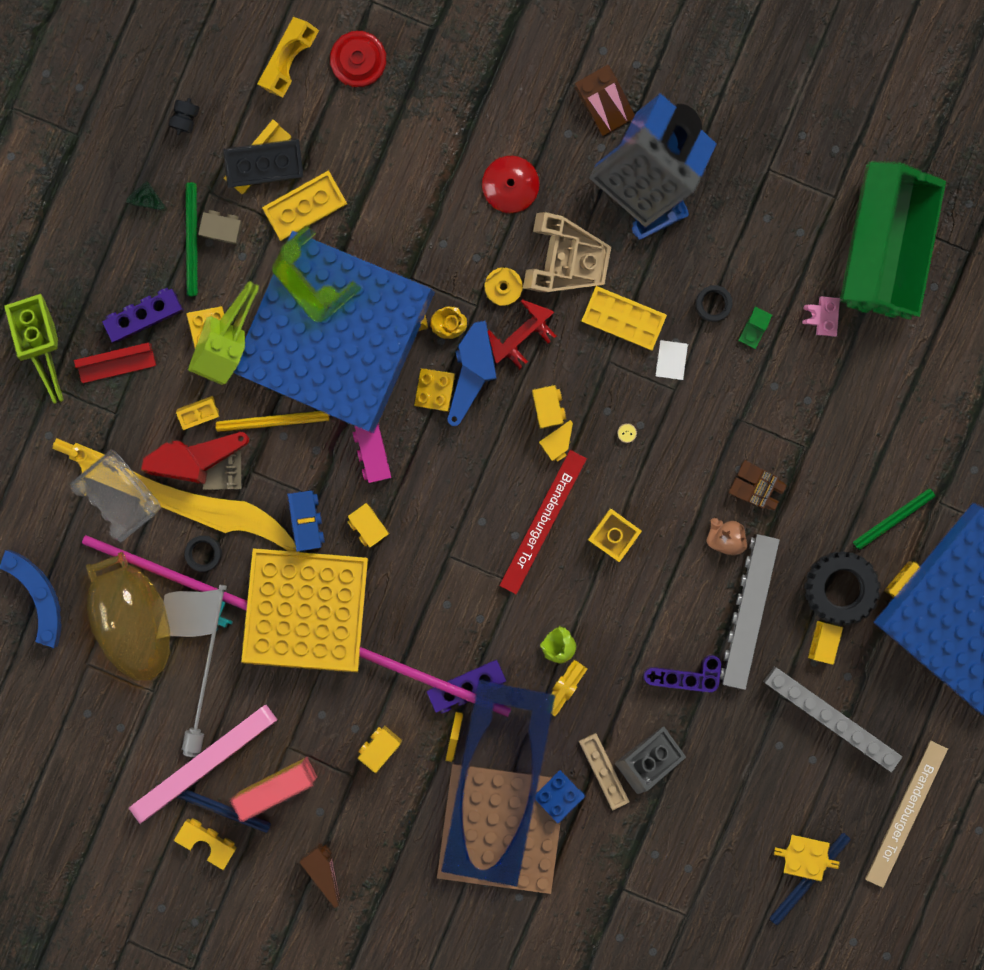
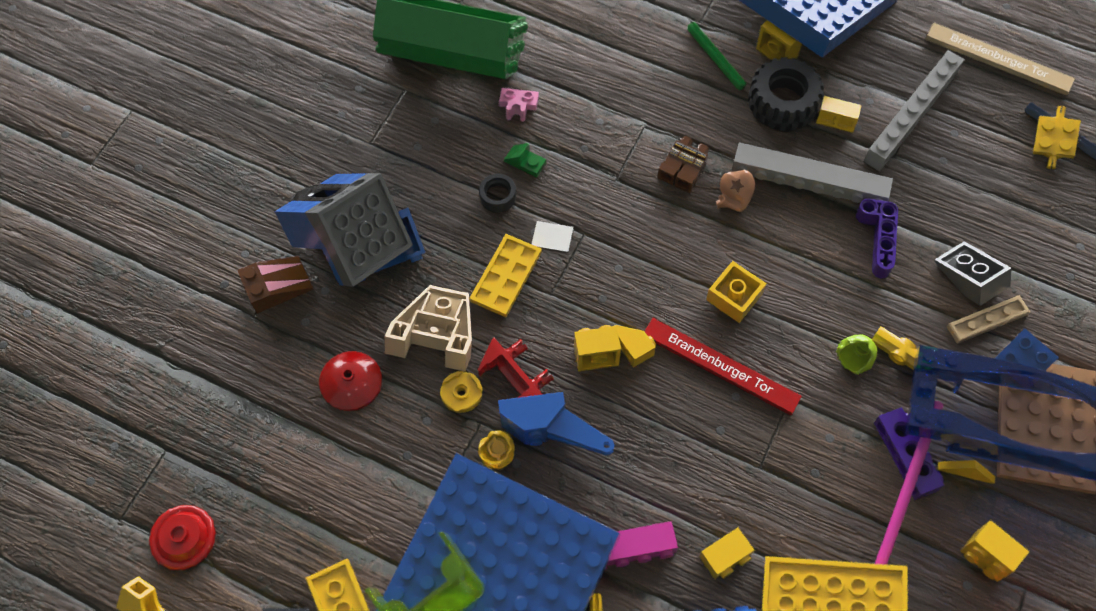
camera: 85 degrees left, 25 degrees down
(434, 389) = (571, 470): yellow hinge -> none
(627, 433) = (626, 279): light yellow tile -> none

